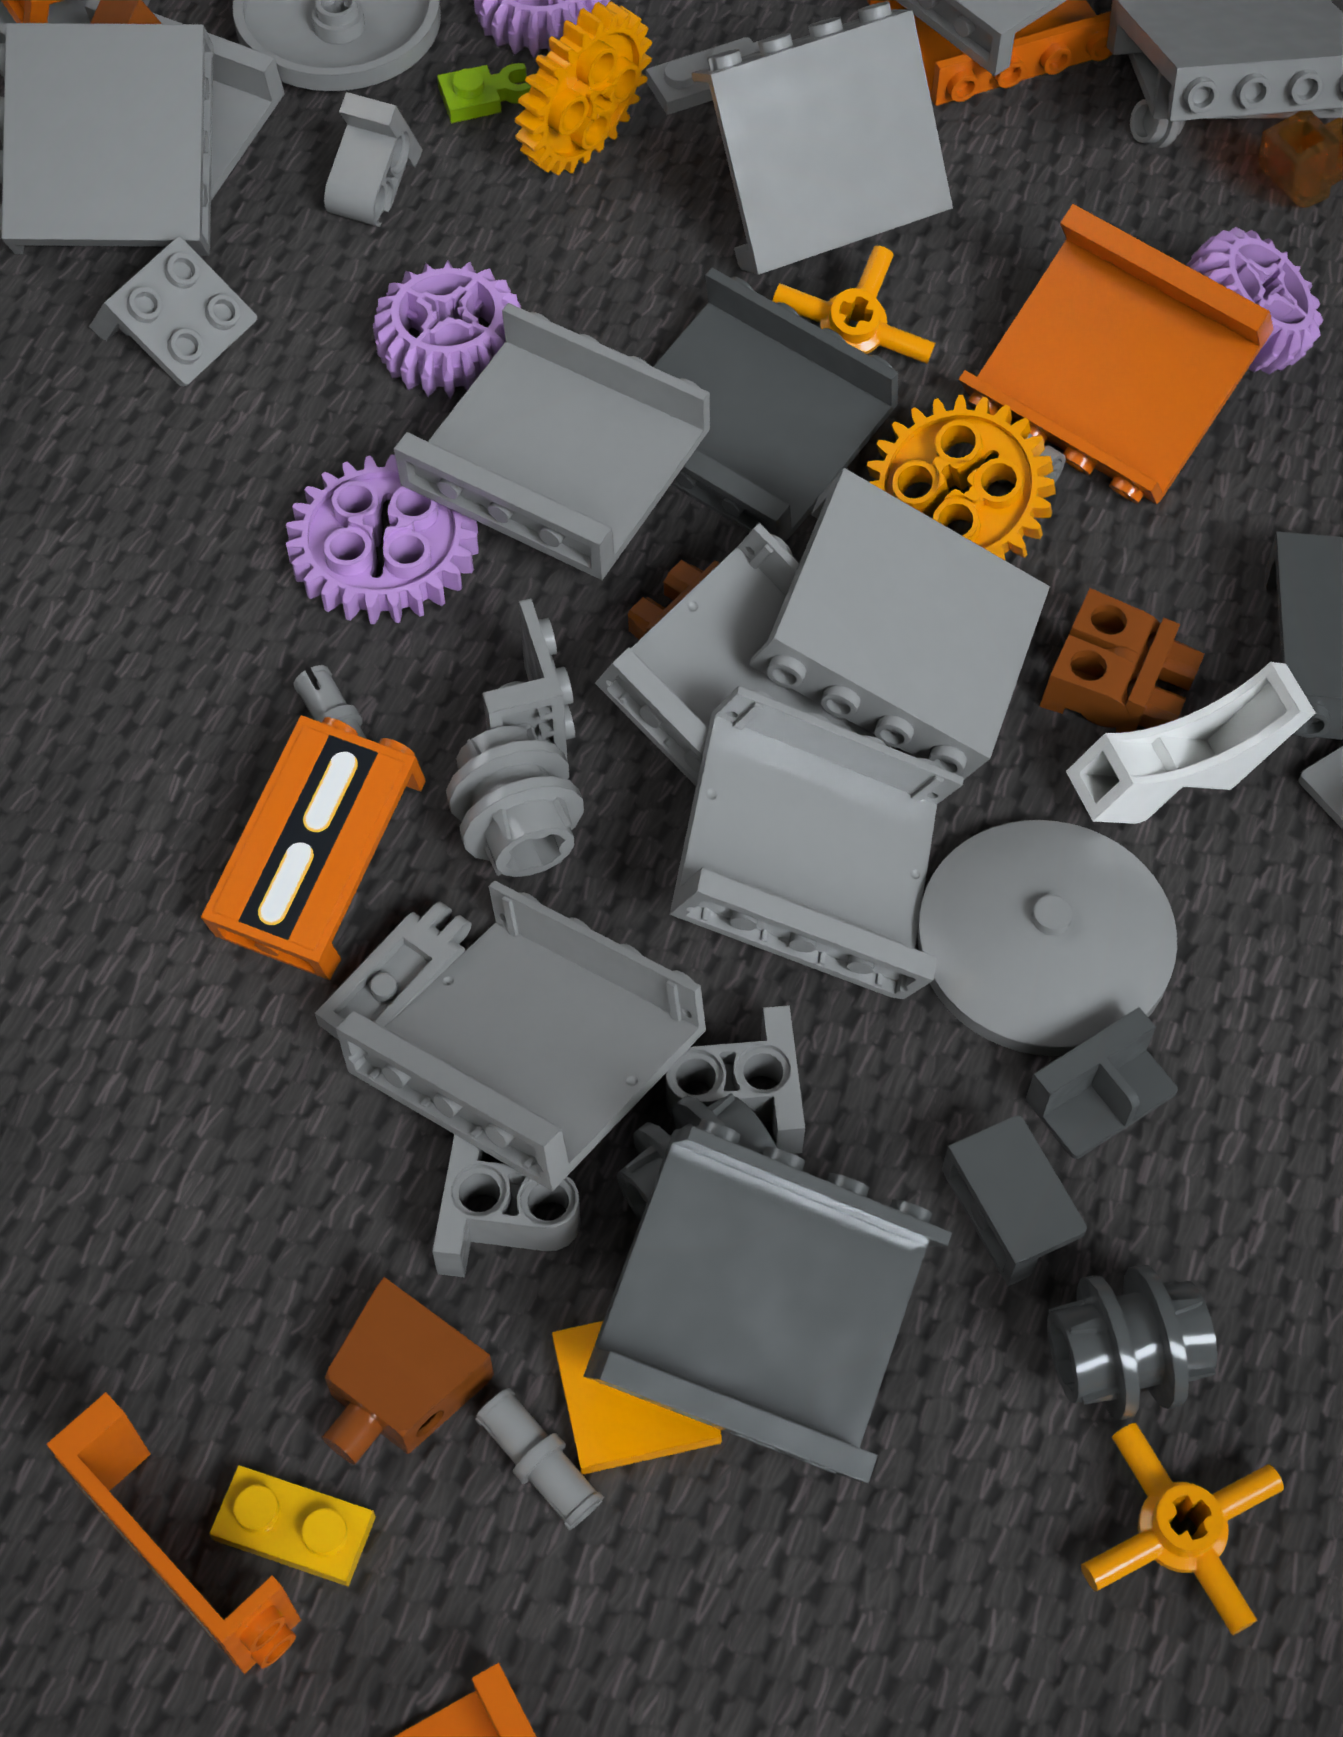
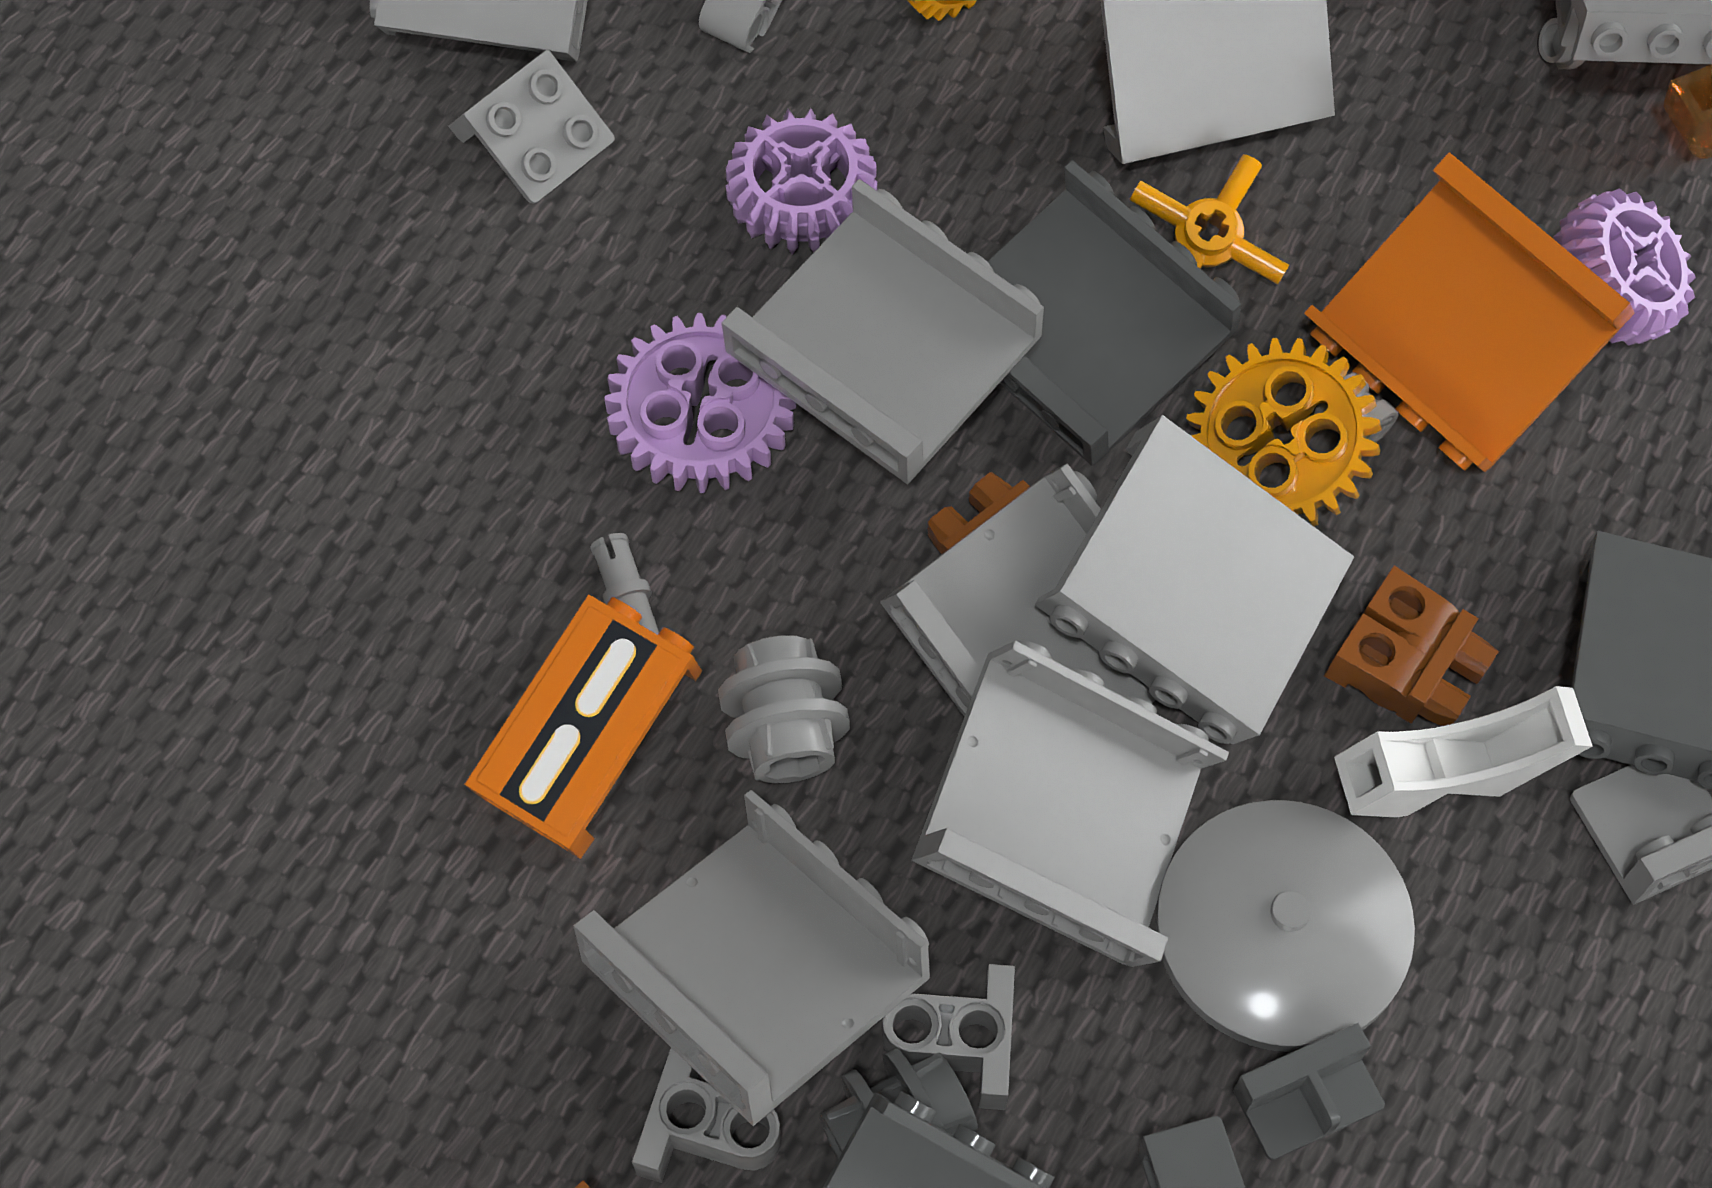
camera: 10 degrees right, 5 degrees up
(398, 969) = (644, 864): light grey hinge -> none
(545, 697) = (825, 617): light grey bracket -> none

